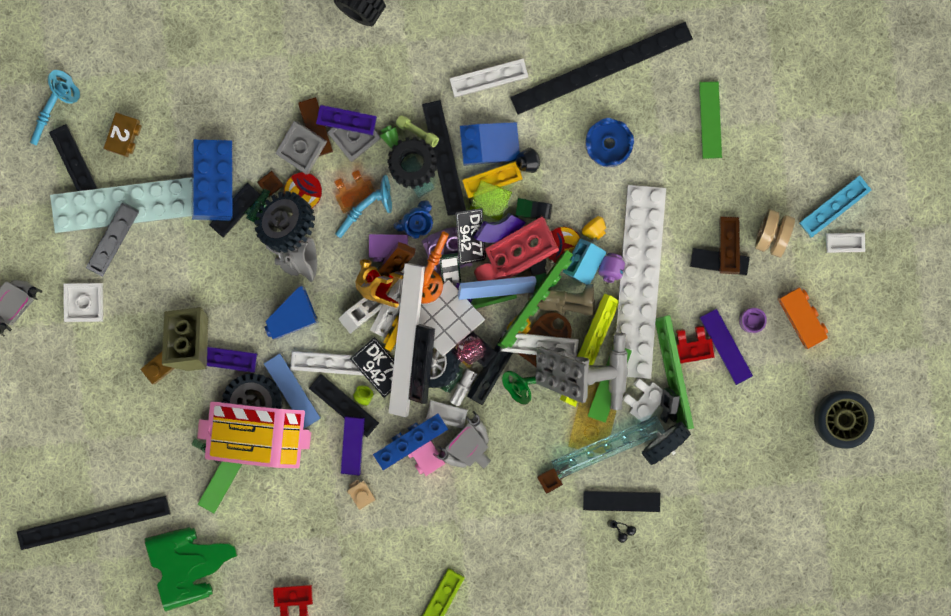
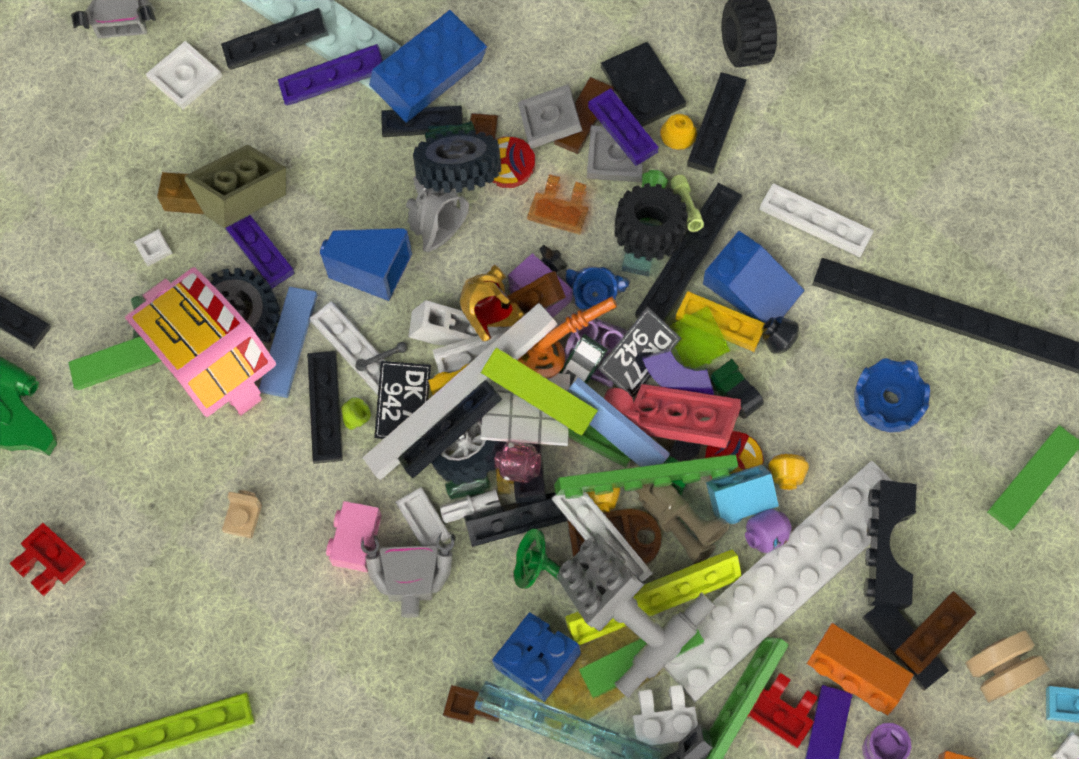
camera: 45 degrees right, 20 degrees down
(164, 230) = (330, 75): none -> dark purple tile
(172, 408) = (153, 247): none -> white tile
(328, 80) = (643, 84): none -> black plate
(343, 370) = (361, 364): none -> dark grey hinge
(352, 445) = (287, 454): dark purple tile -> none
(379, 91) = (678, 132): none -> yellow cone
(379, 225) = (552, 259): none -> black piece
(381, 194) = (589, 229): medium azure dish -> none
(388, 68) = (716, 123): none -> black plate
(410, 441) = (351, 503): blue bracket -> none
(448, 308) = (539, 391): none -> lime tile
(562, 428) = (536, 656): none -> blue piece
(659, 204) = (888, 582): none -> black arch
(710, 295) = (860, 669): none -> orange brick

